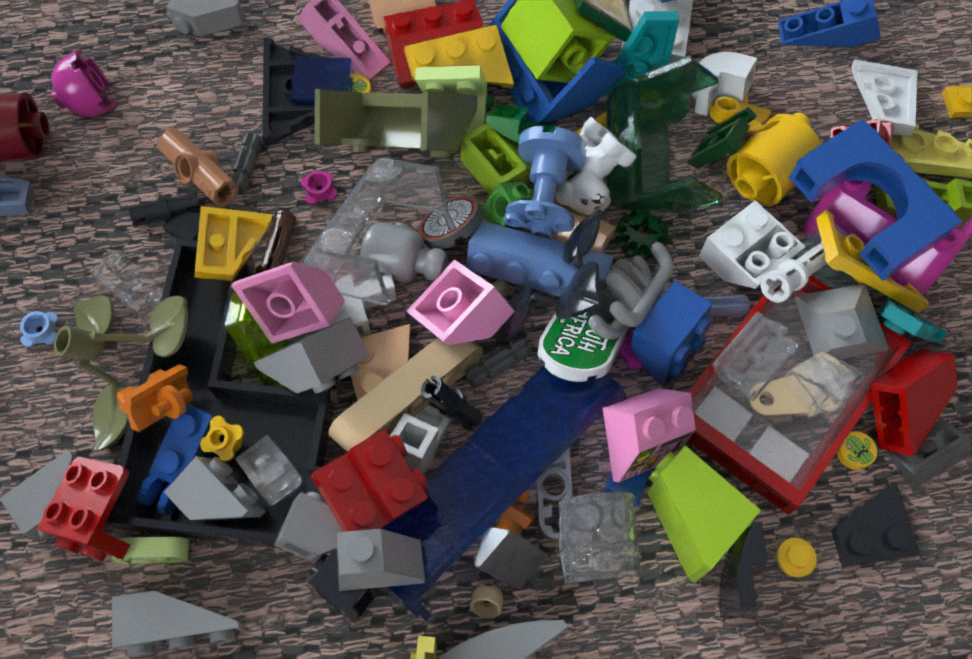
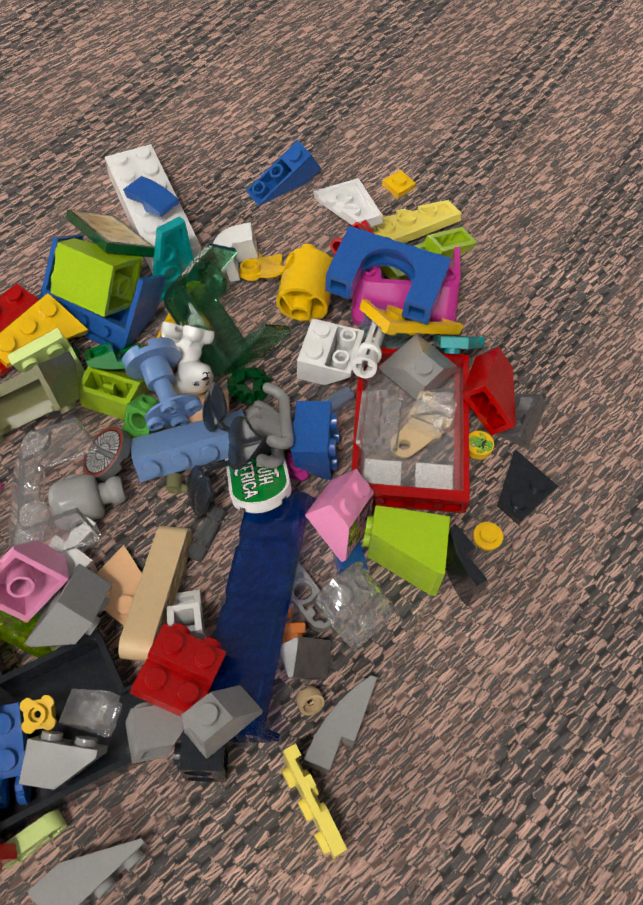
camera: 35 degrees left, 5 degrees down
(451, 402) = (194, 579): black pin -> none
(461, 307) = (156, 507): bright pink slope -> none
(722, 139) = (263, 289): dark green plate -> none

